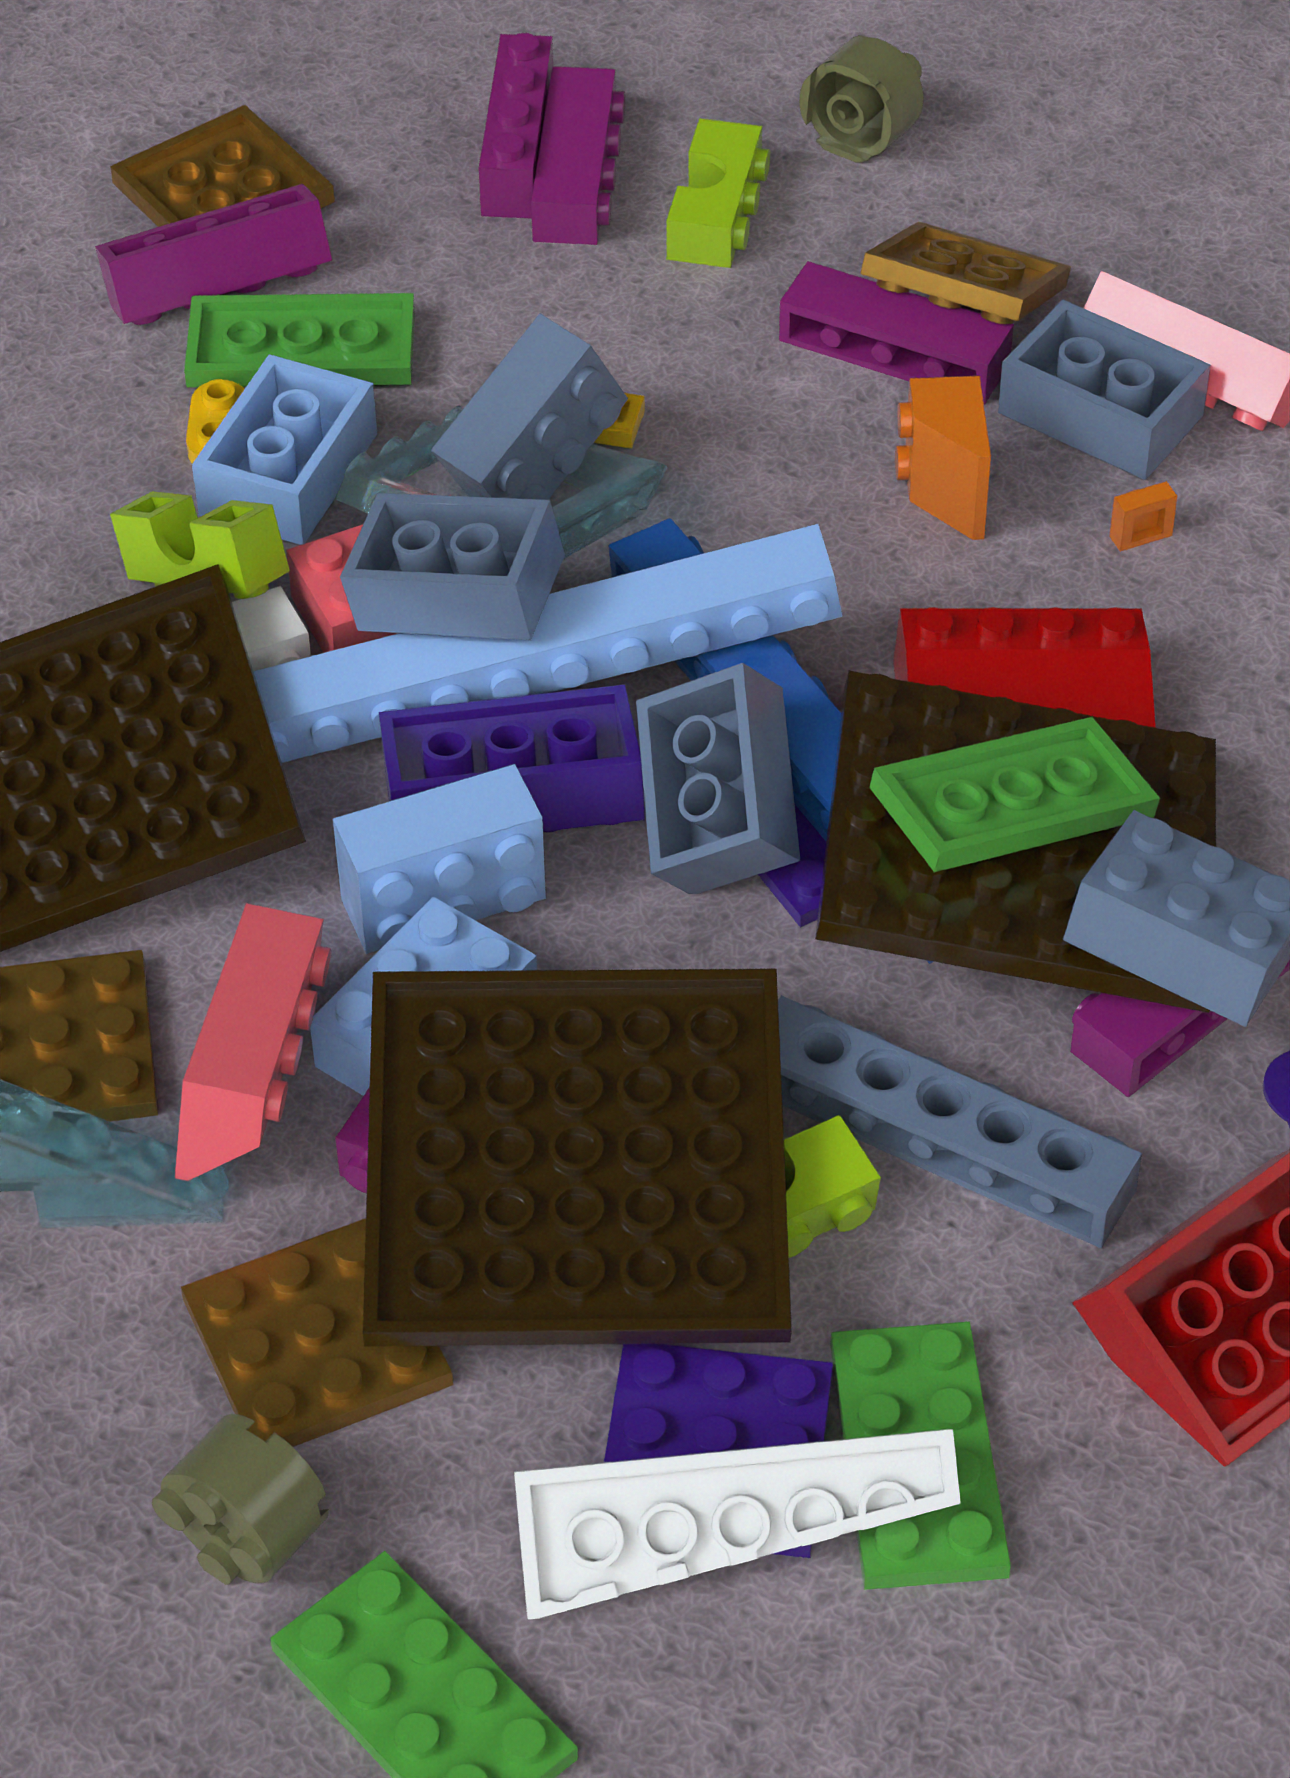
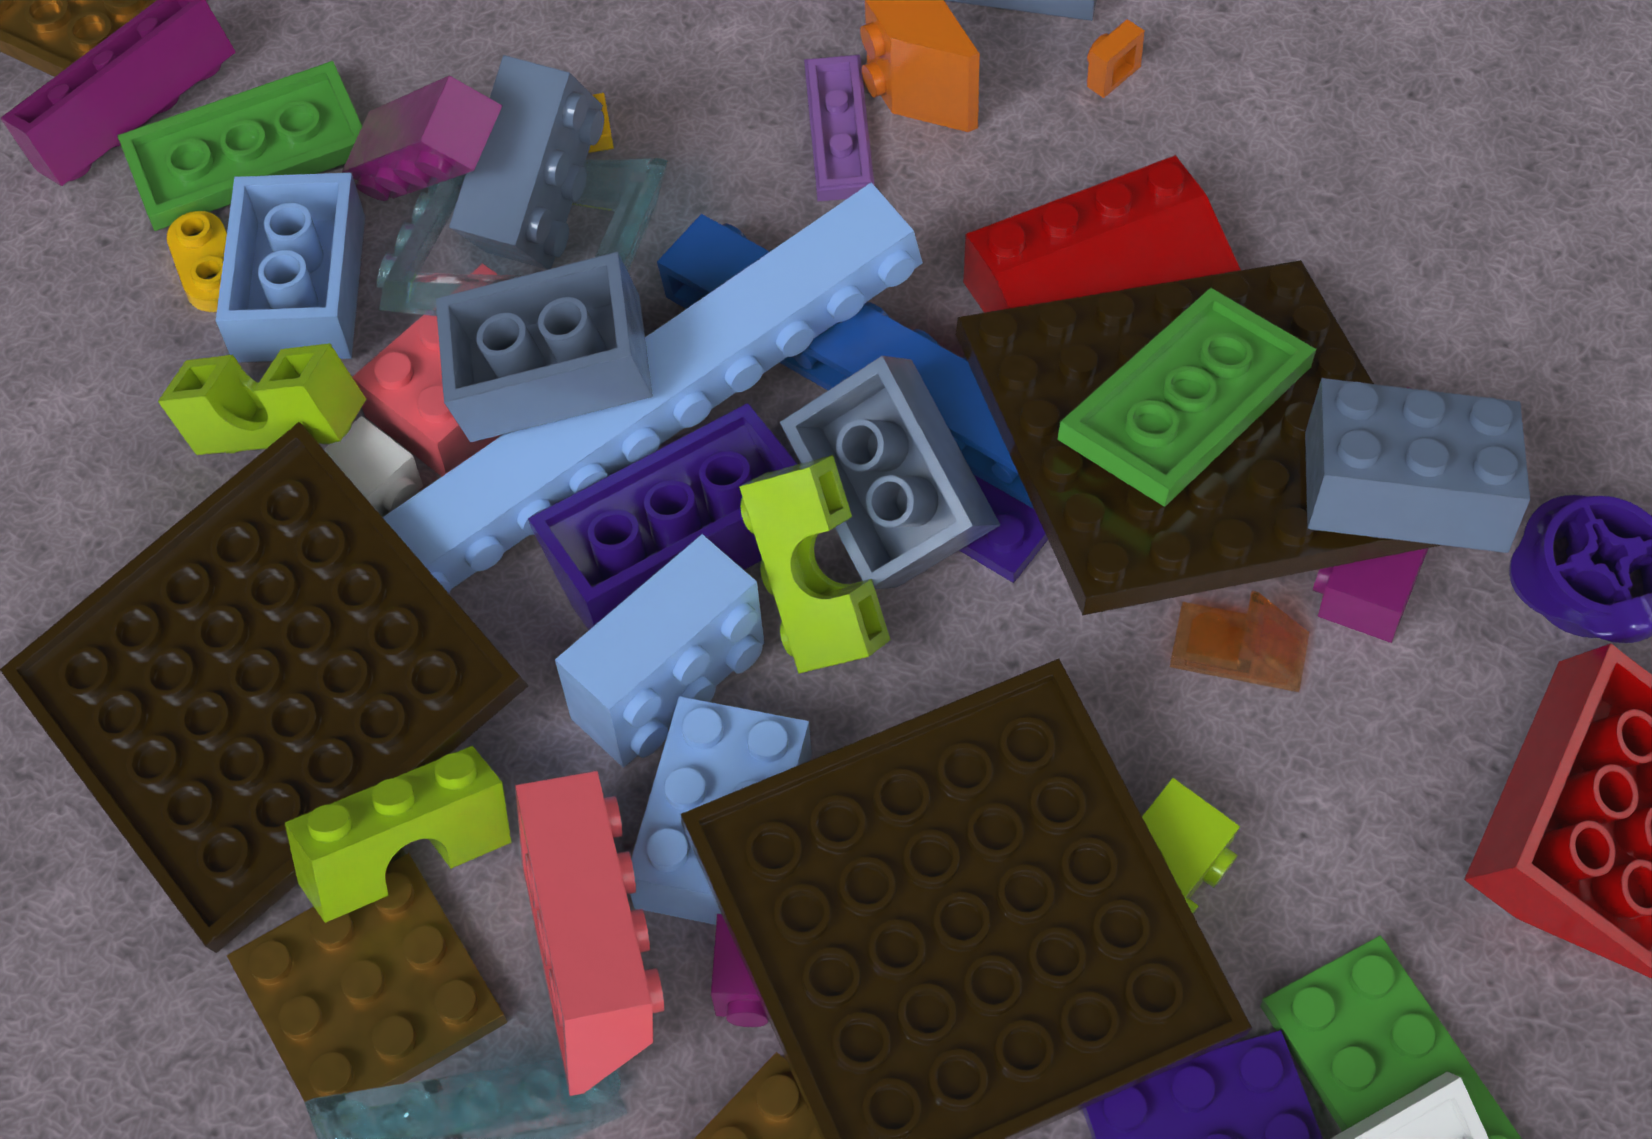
camera: 20 degrees left, 10 degrees up
(87, 907) = (347, 844): none -> lime arch
(442, 370) = (421, 139): none -> magenta brick
(599, 780) = (820, 618): none -> lime arch
(853, 492) = (838, 126): none -> medium lavender tile
(955, 1125) = (1282, 761): sand blue brick -> none
(984, 1044) = (1250, 647): none -> clear orange slope

